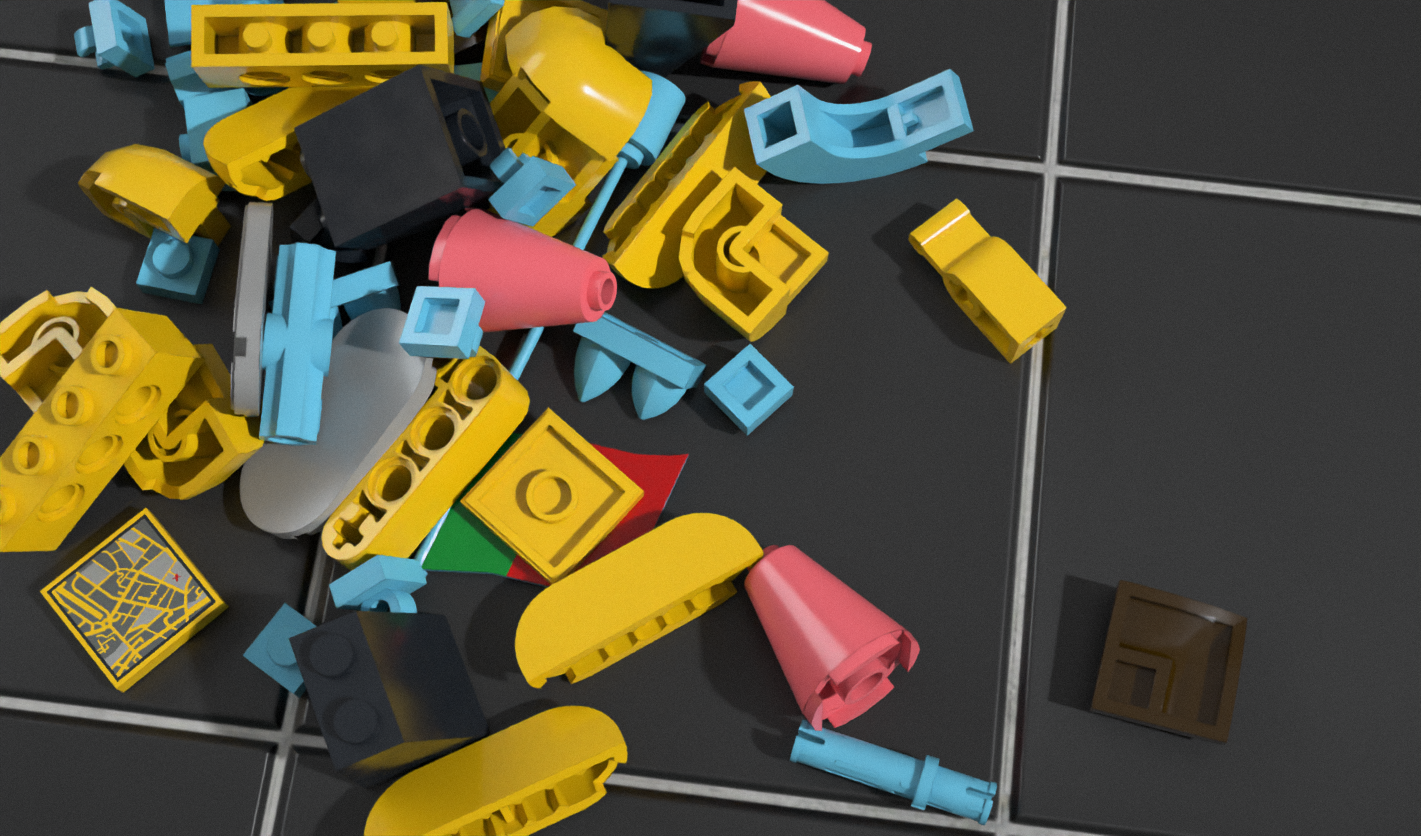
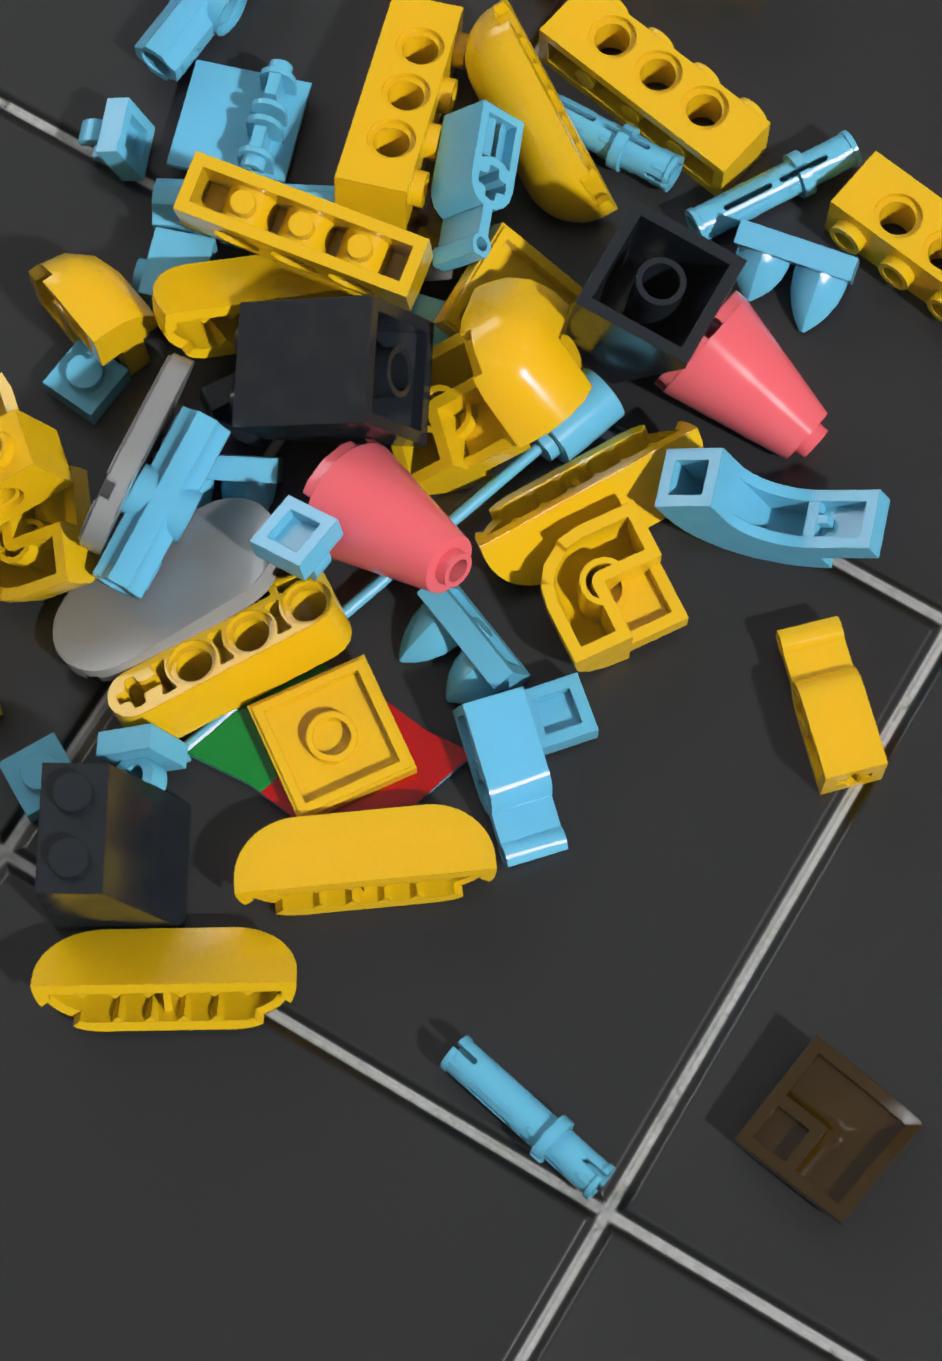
camera: 25 degrees right, 0 degrees up
(529, 187) = (431, 443): medium azure tile -> none
(732, 461) = (511, 775): none -> medium azure piece
(826, 636) = (520, 971): coral cone -> none

